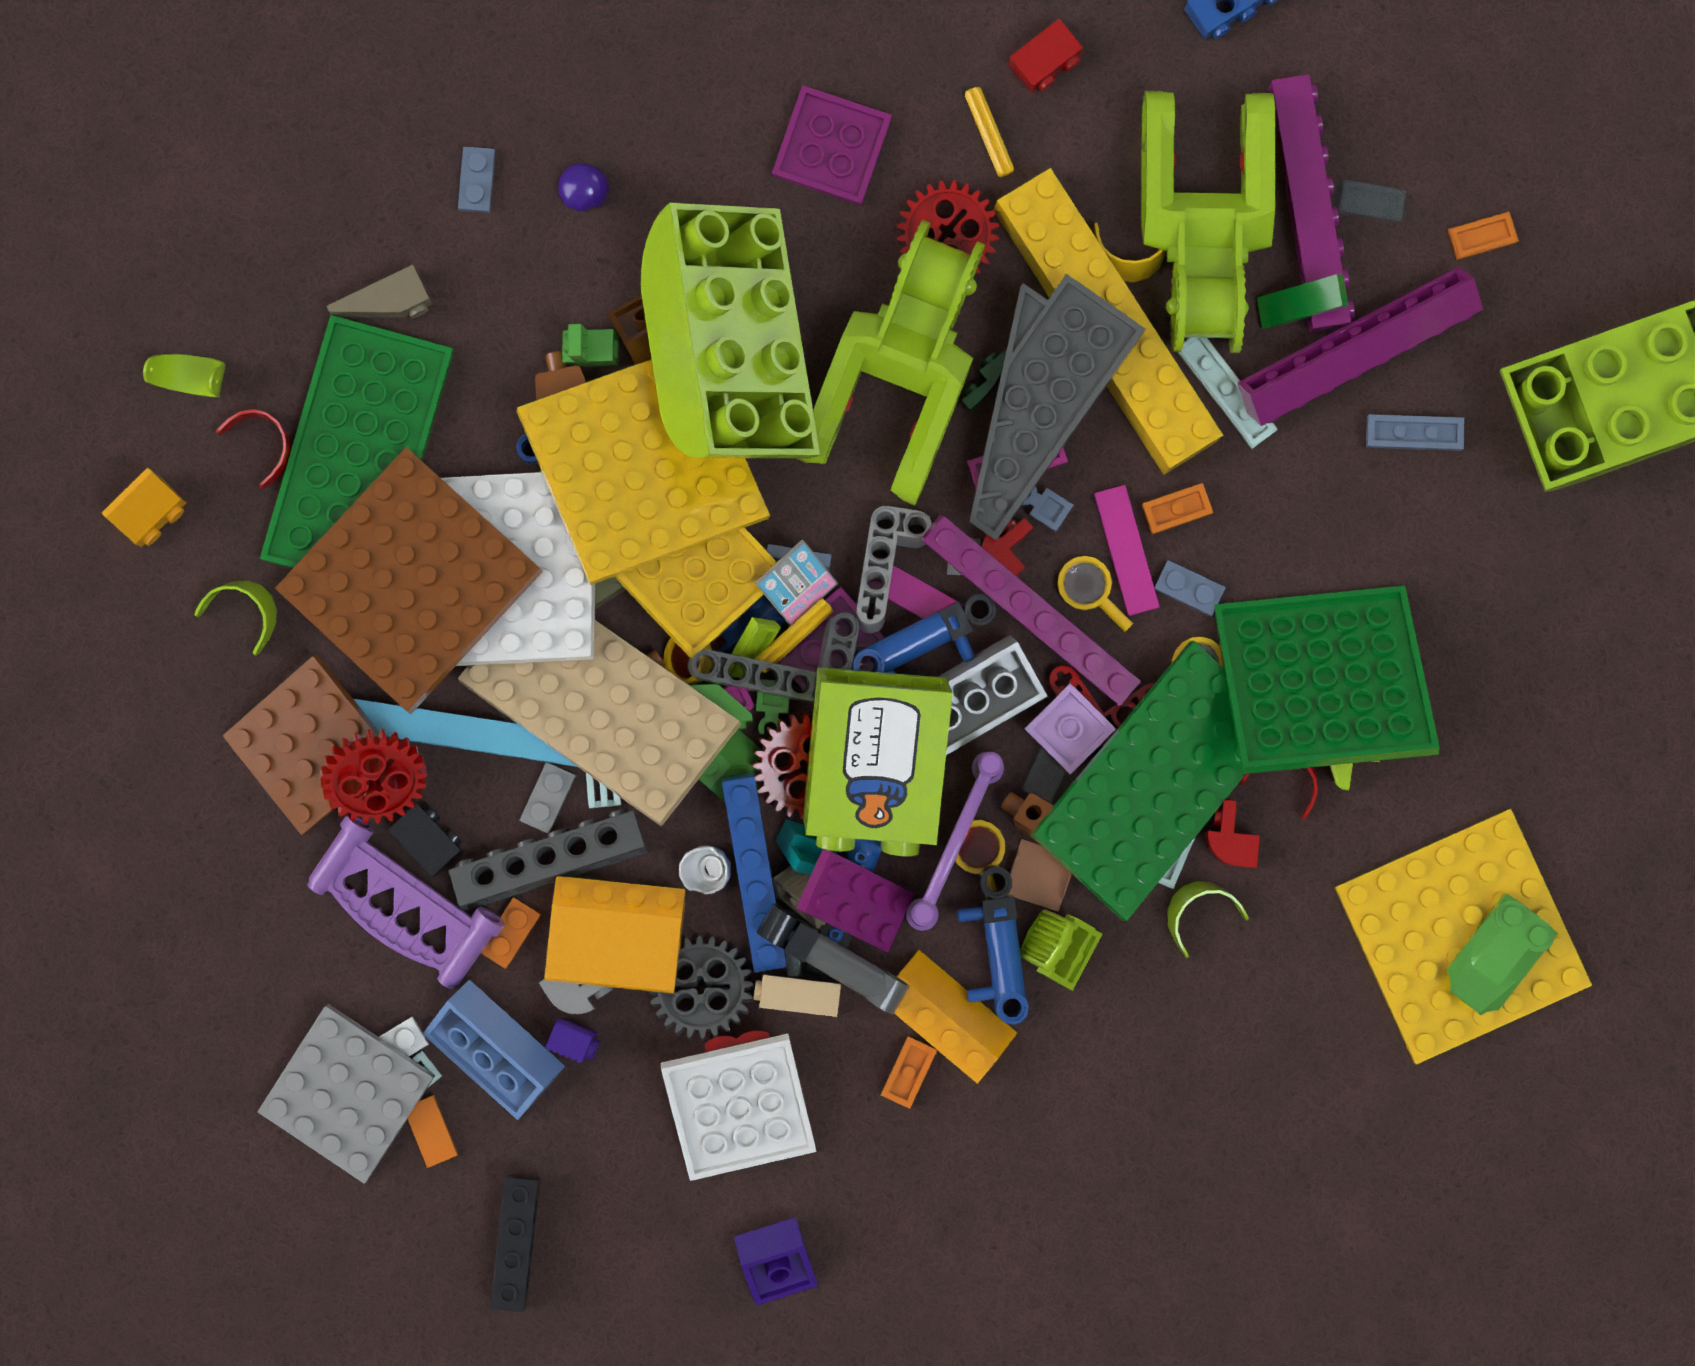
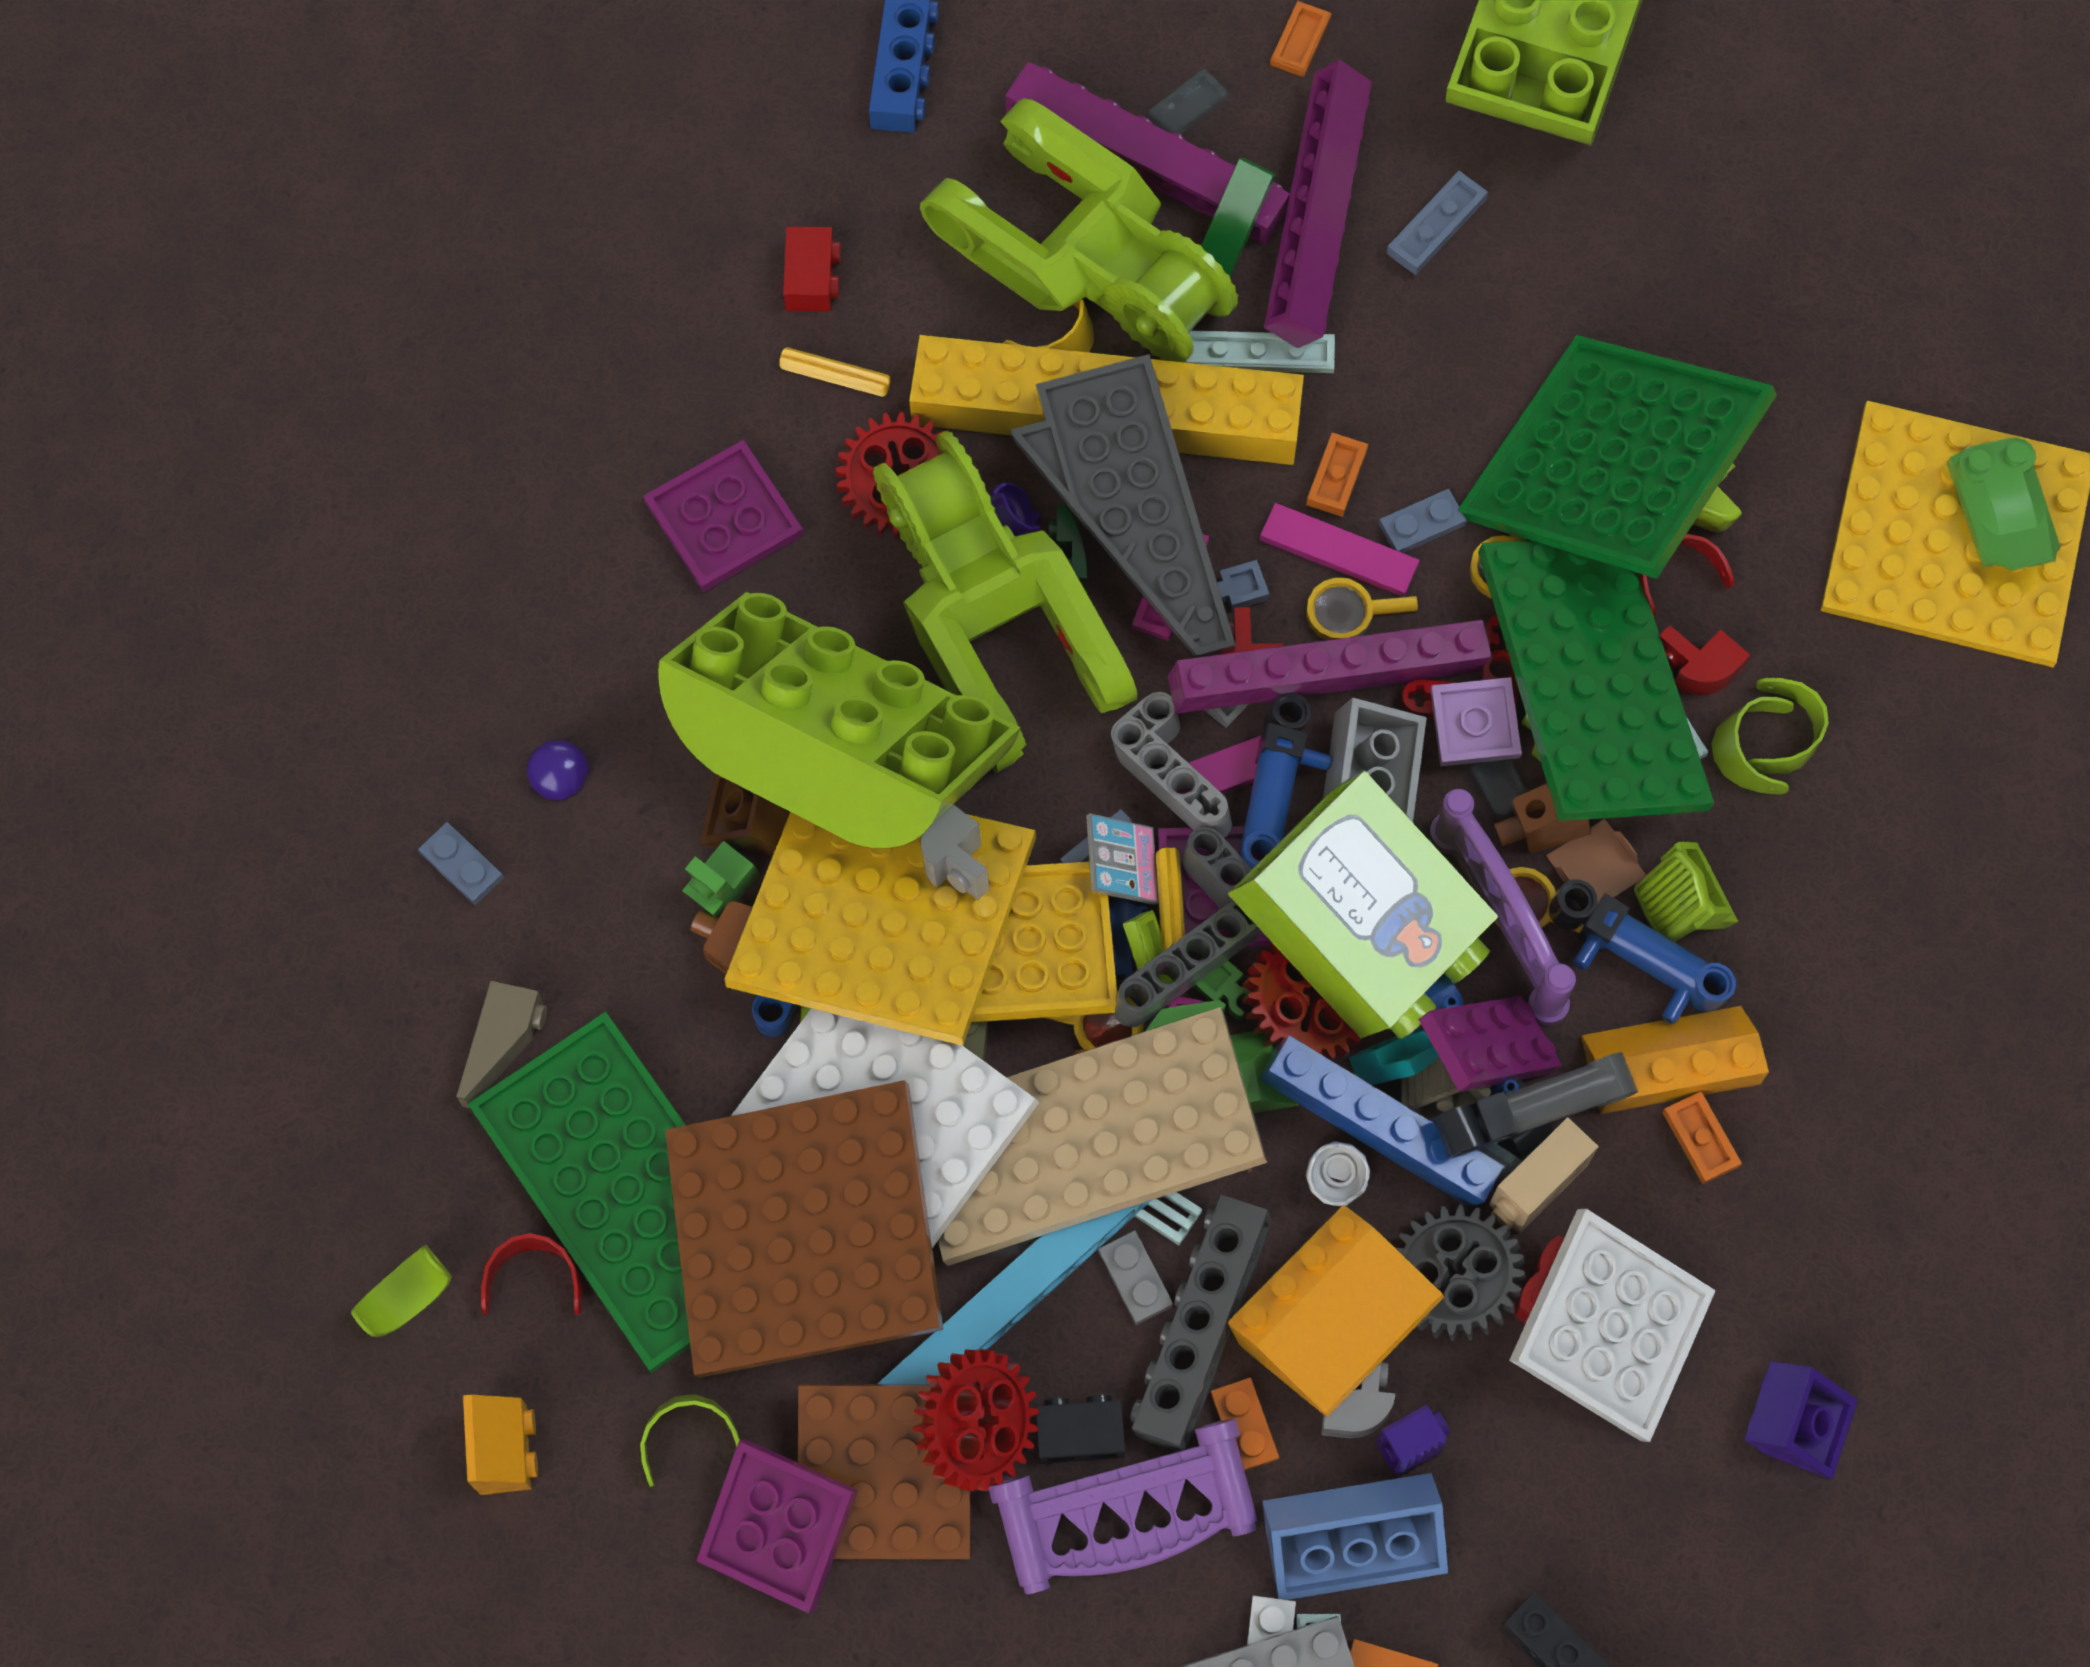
camera: 50 degrees left, 15 degrees down
(226, 709) = (777, 1525): none -> magenta plate
(703, 475) = (948, 853): none -> light grey brick
(980, 325) = (1014, 509): none -> dark purple hair
(1254, 938) = (1817, 712): none -> lime piece

